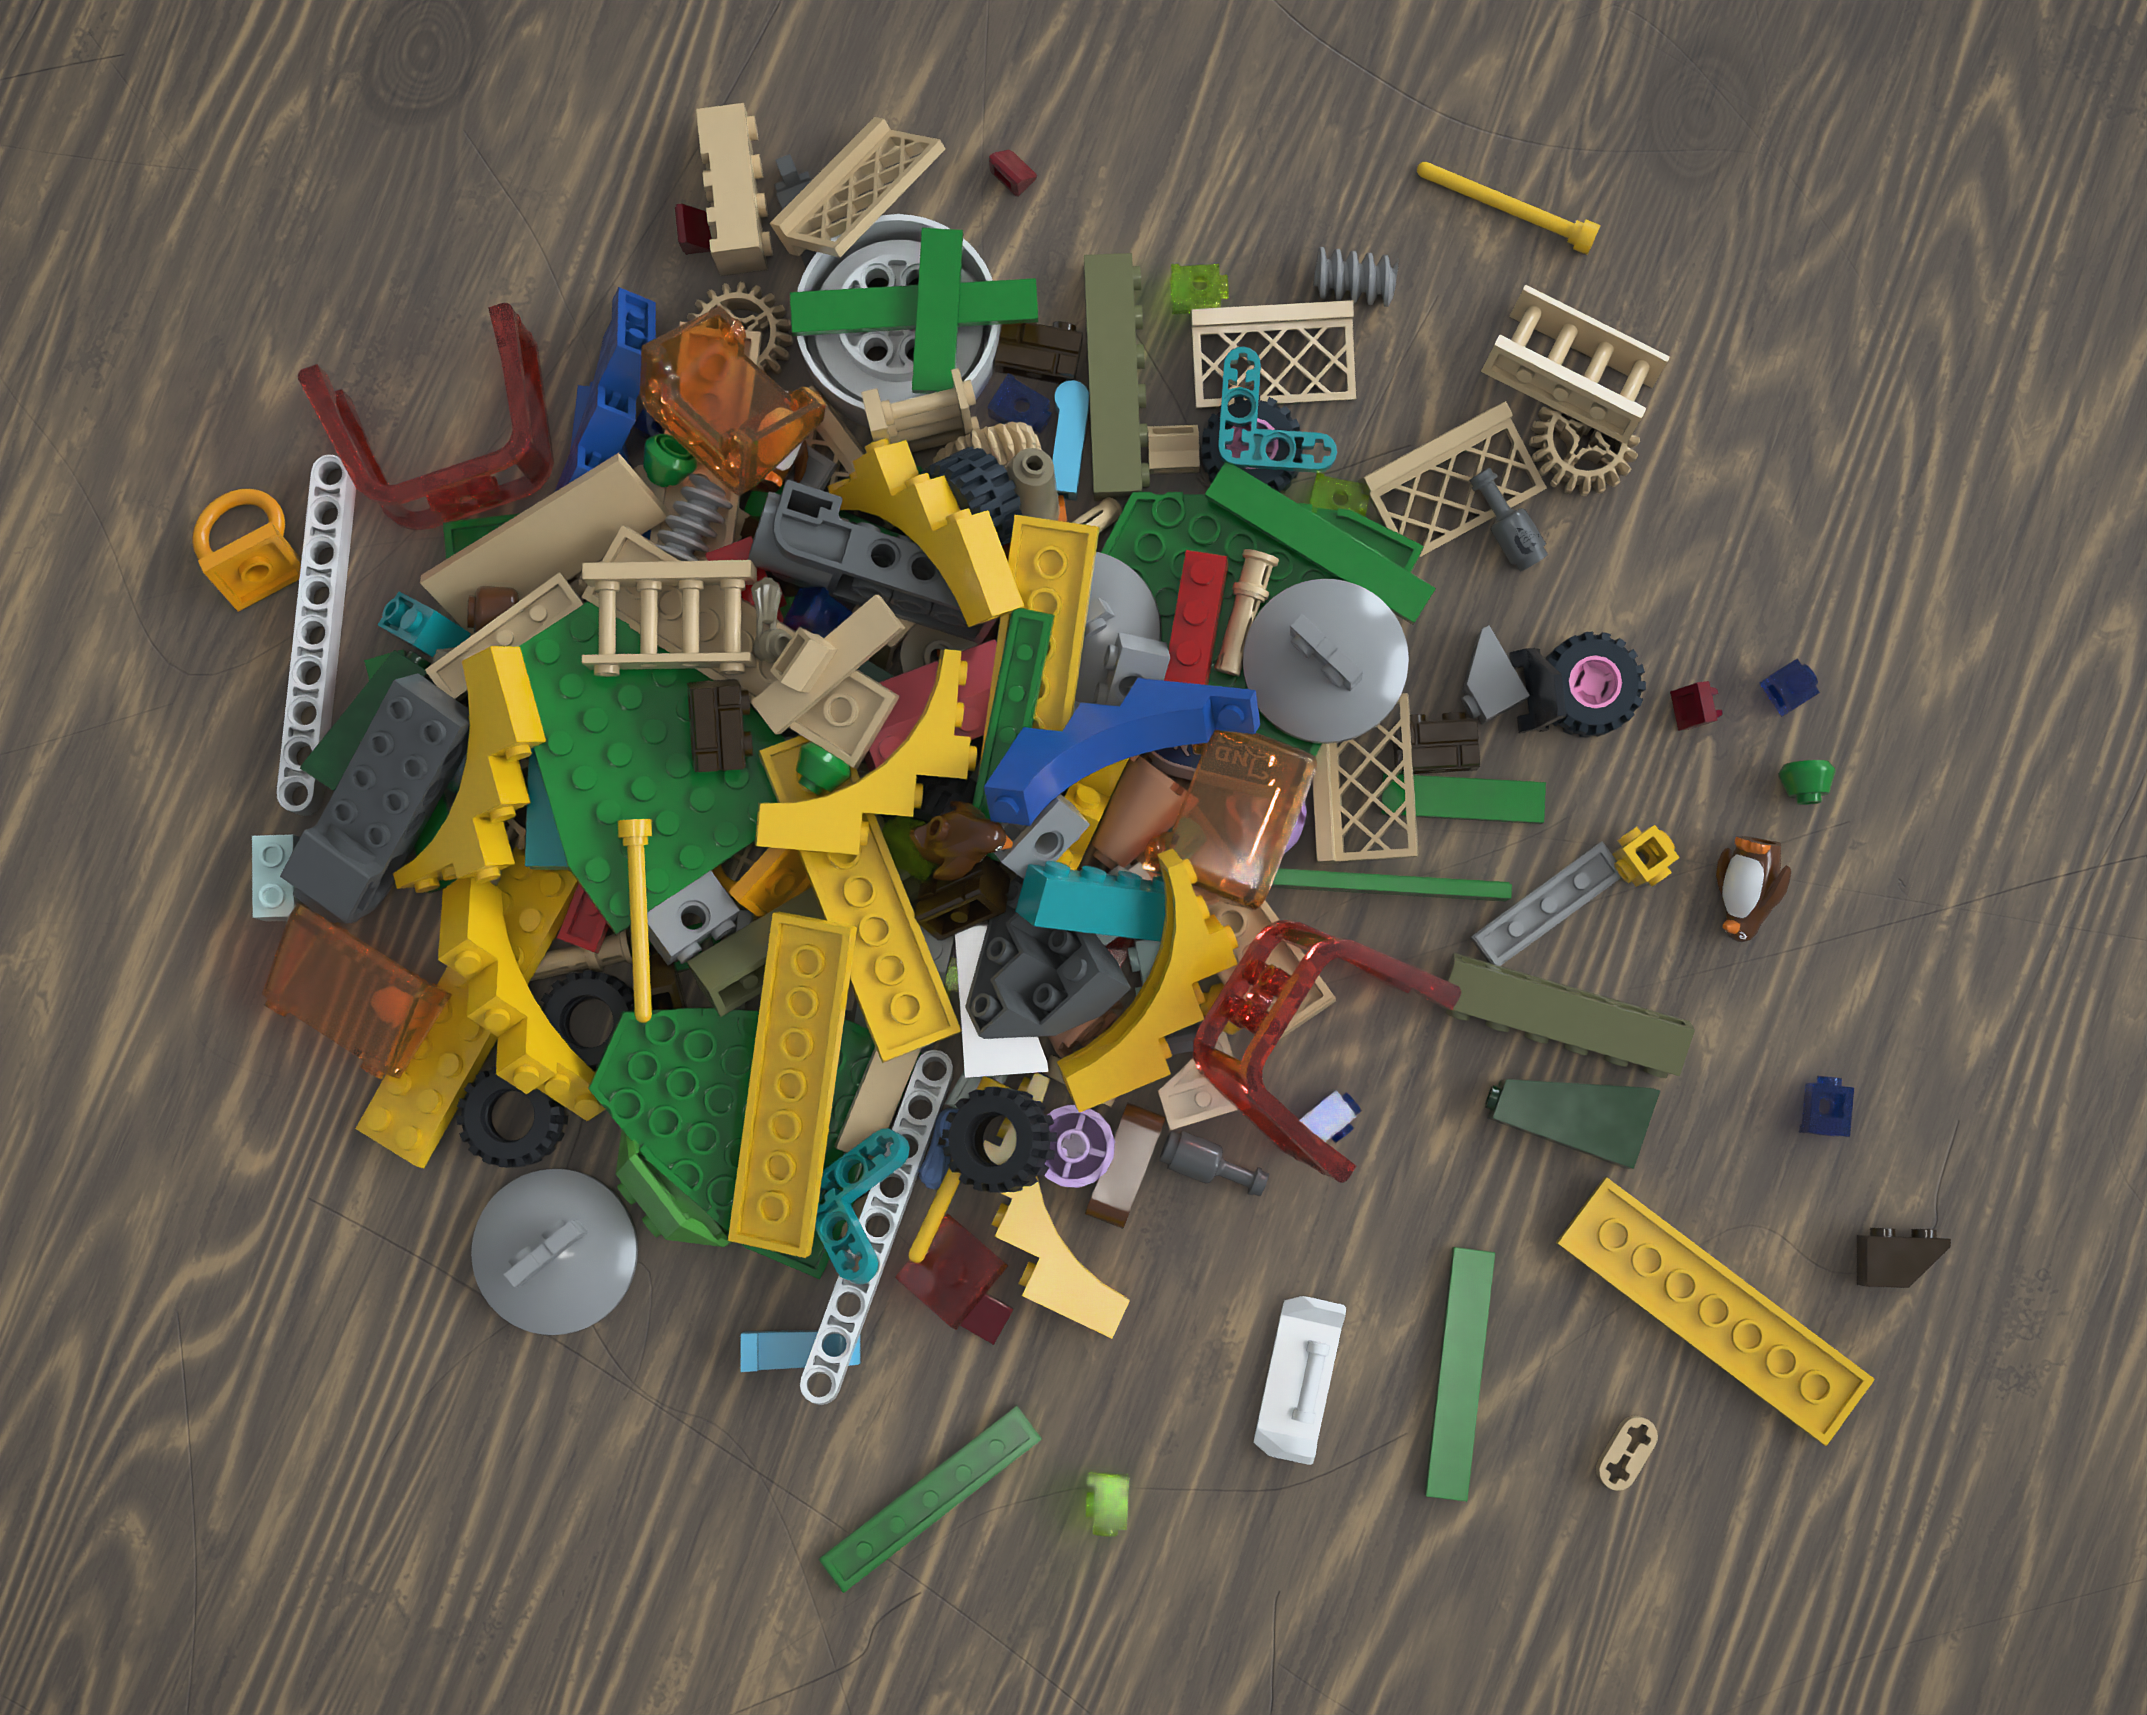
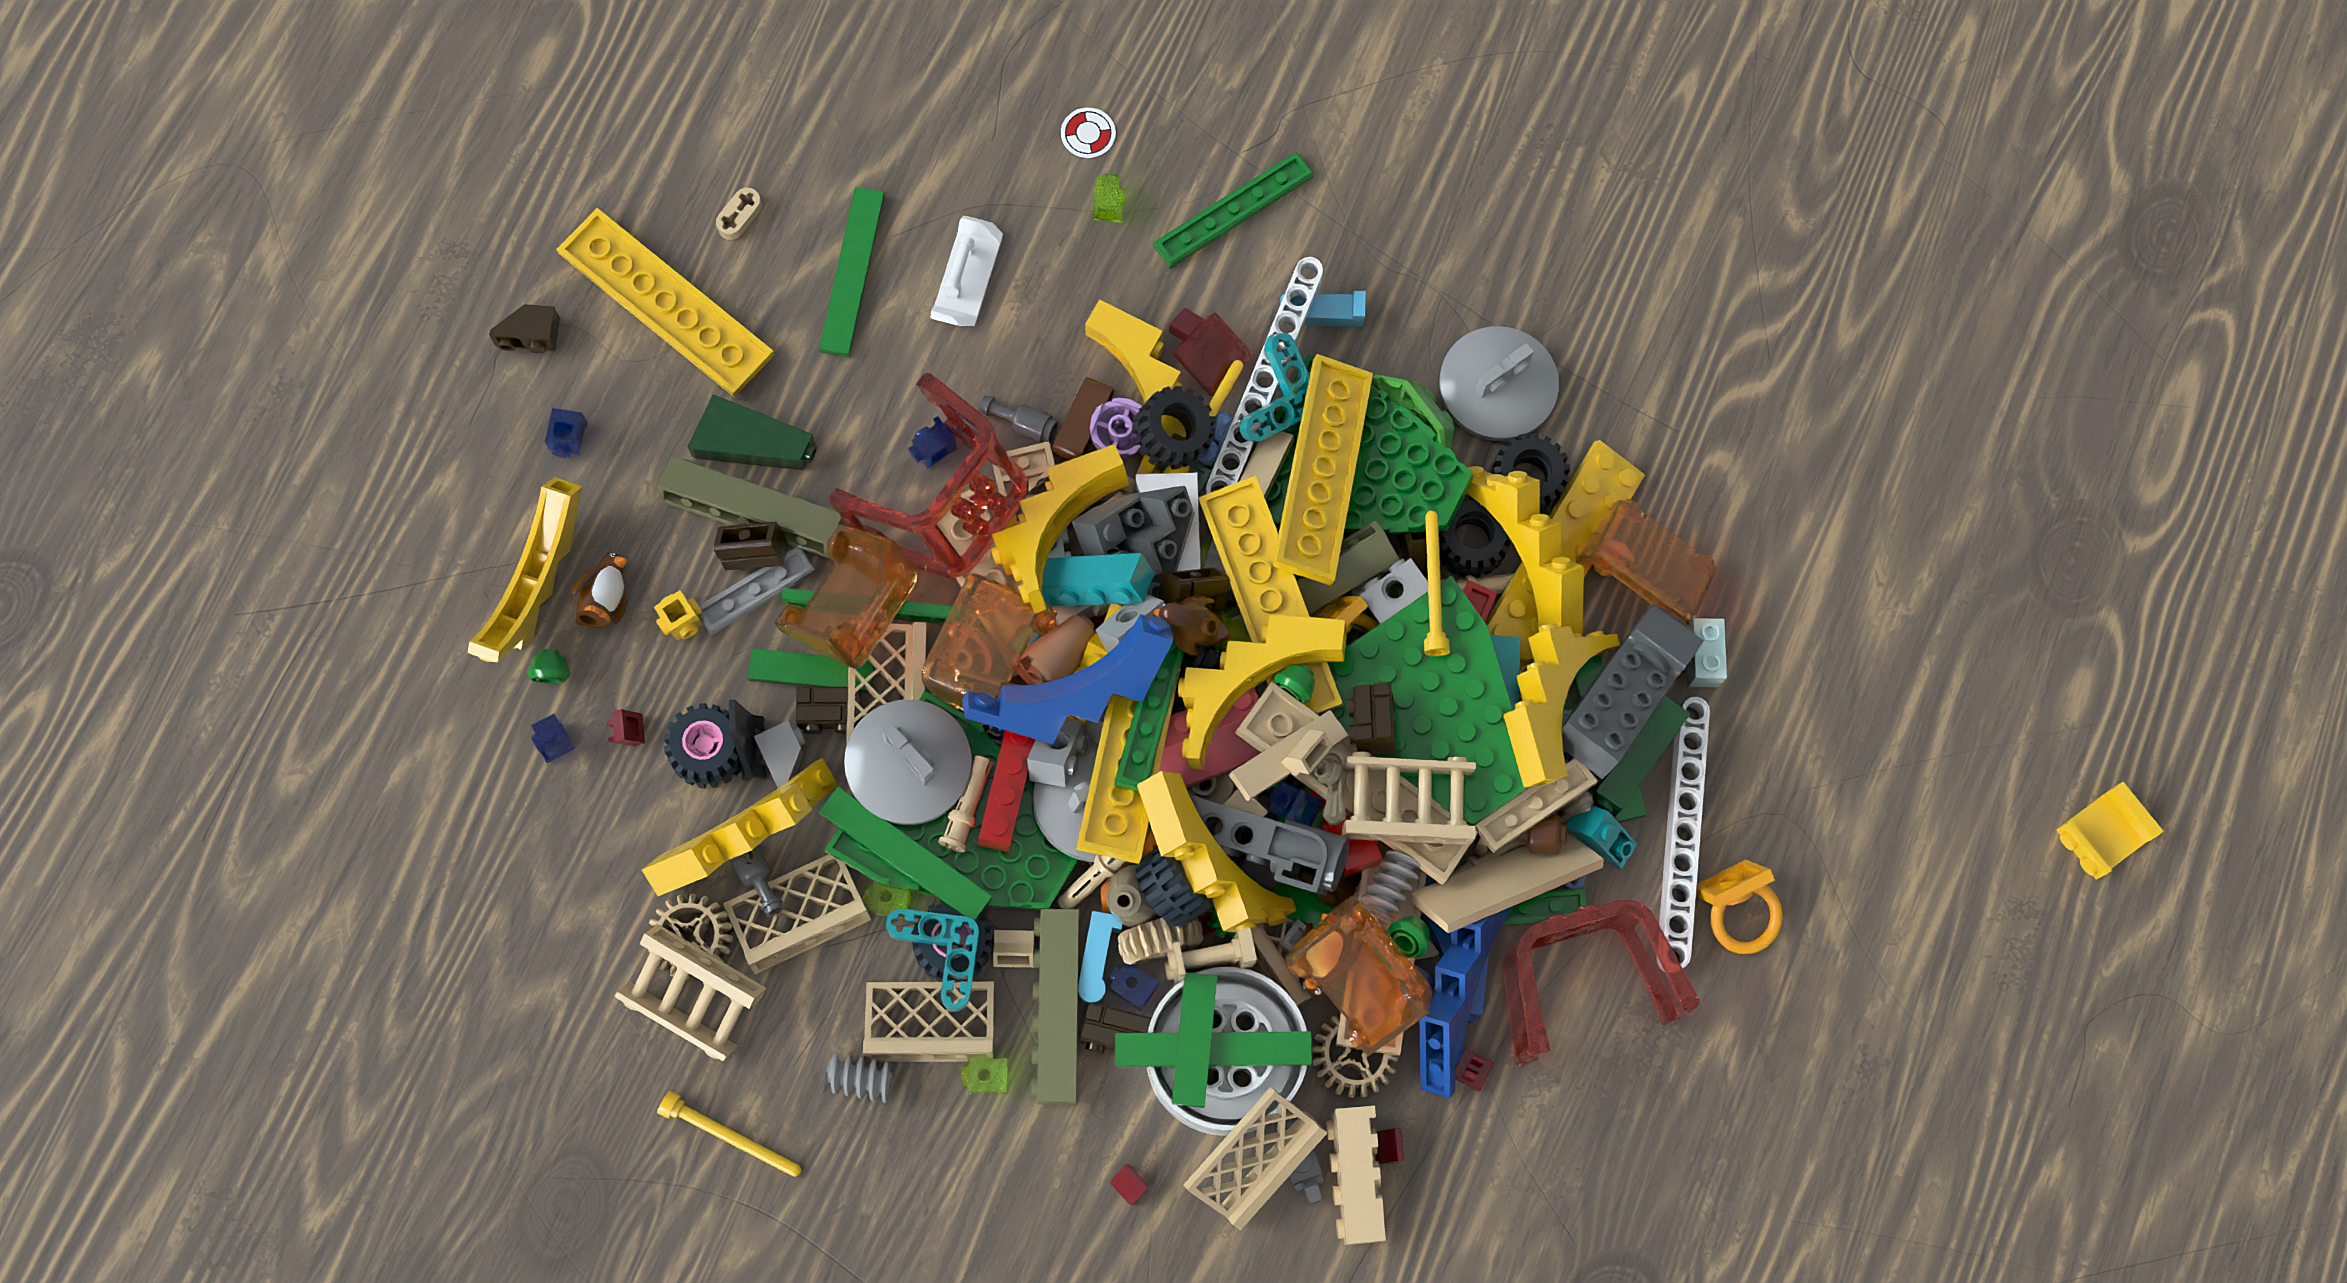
camera: 175 degrees right, 10 degrees down
(587, 329) = (1473, 1069): none -> dark red tile
(1142, 1610) = (1088, 132): none -> sticker
(1419, 876) = (854, 599): none -> clear orange windscreen
(1532, 555) = (741, 832): none -> yellow arch
(1559, 955) = (750, 546): none -> dark brown brick
(1845, 888) = (533, 582): none -> yellow arch

